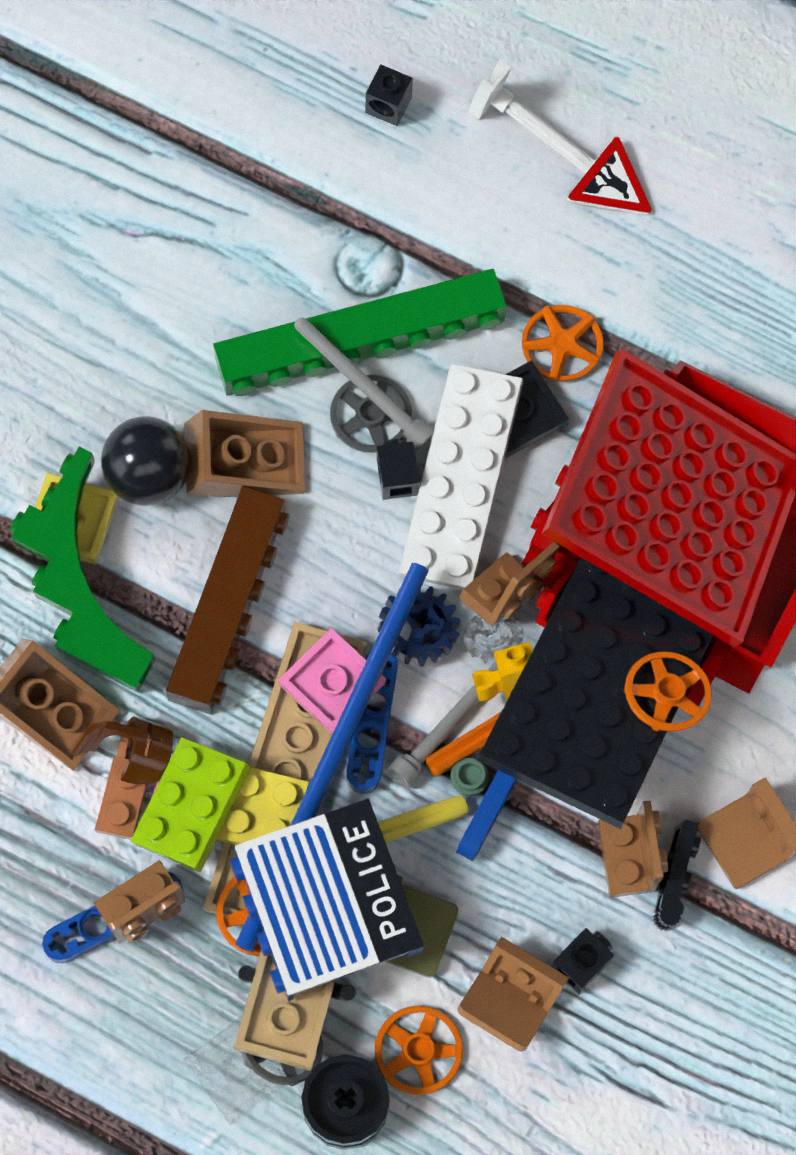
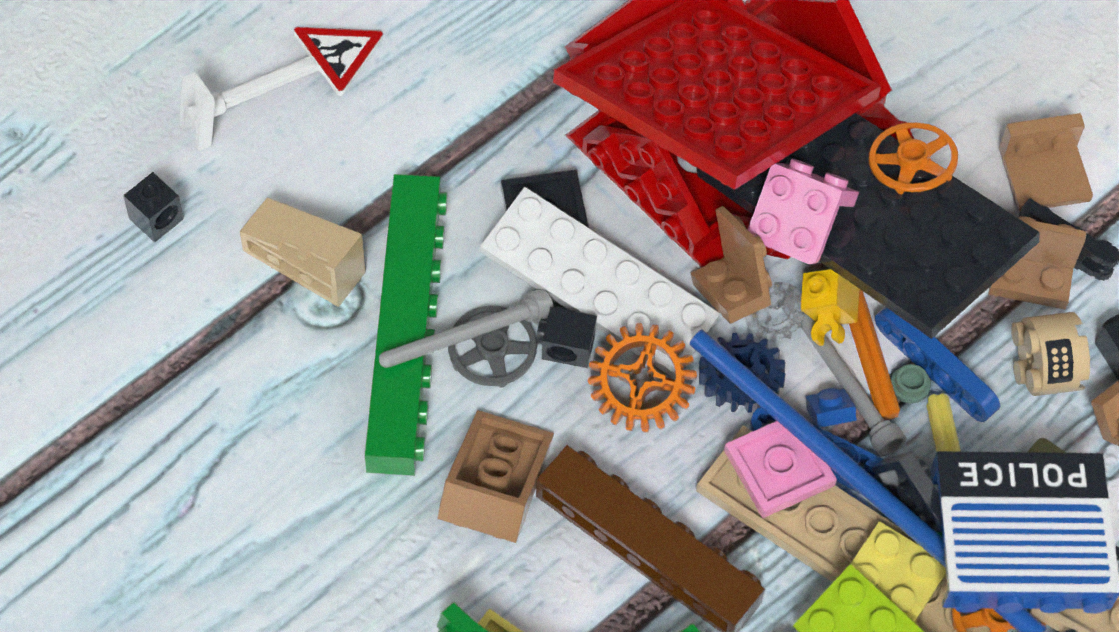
camera: 70 degrees left, 10 degrees down
(145, 461) = (474, 560): black piece -> none
(349, 787) = (909, 481): none -> black plate
(358, 531) = (623, 373): none -> orange gear
(396, 228) = (306, 249): none -> tan wedge
(414, 712) = (830, 407): none -> blue plate
(537, 886) = (1051, 354): none -> tan brick
(563, 342) = (487, 152): orange wheel -> none
(573, 603) = (799, 209): none -> bright pink bracket

